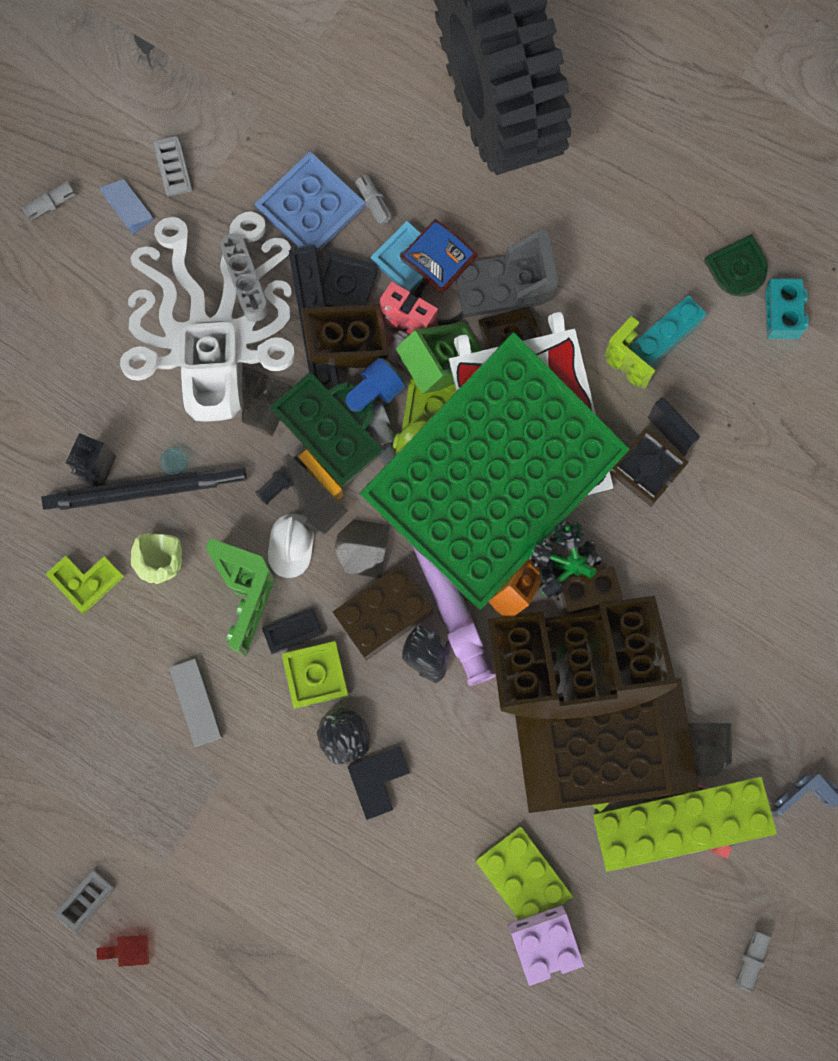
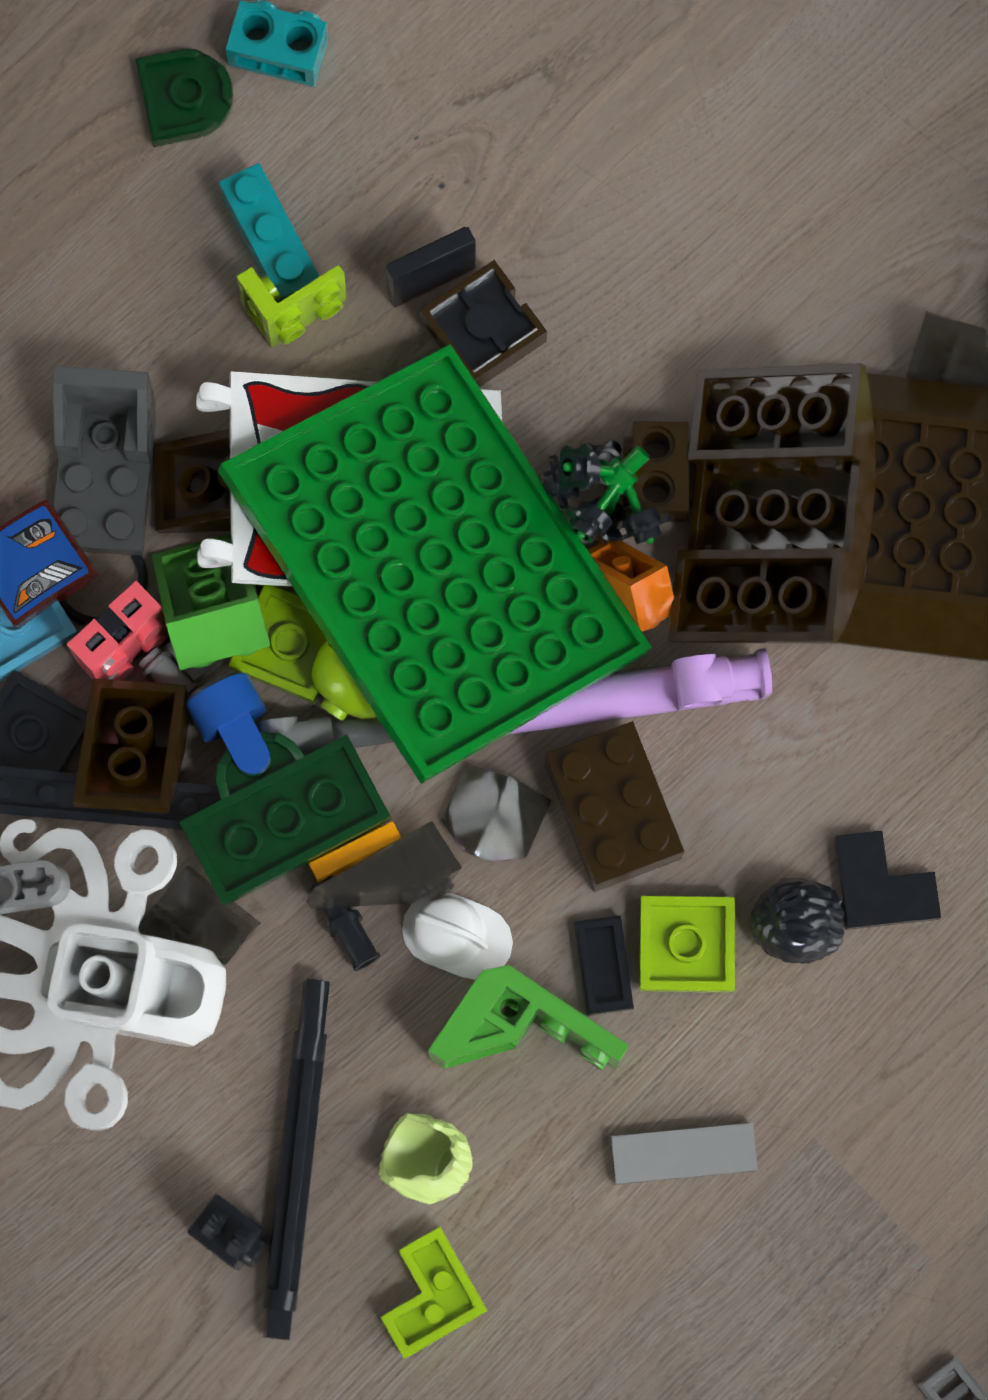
camera: 85 degrees left, 0 degrees up
(173, 461) = (261, 1098): clear light blue plate -> none
(426, 654) = (699, 752): black hair -> none

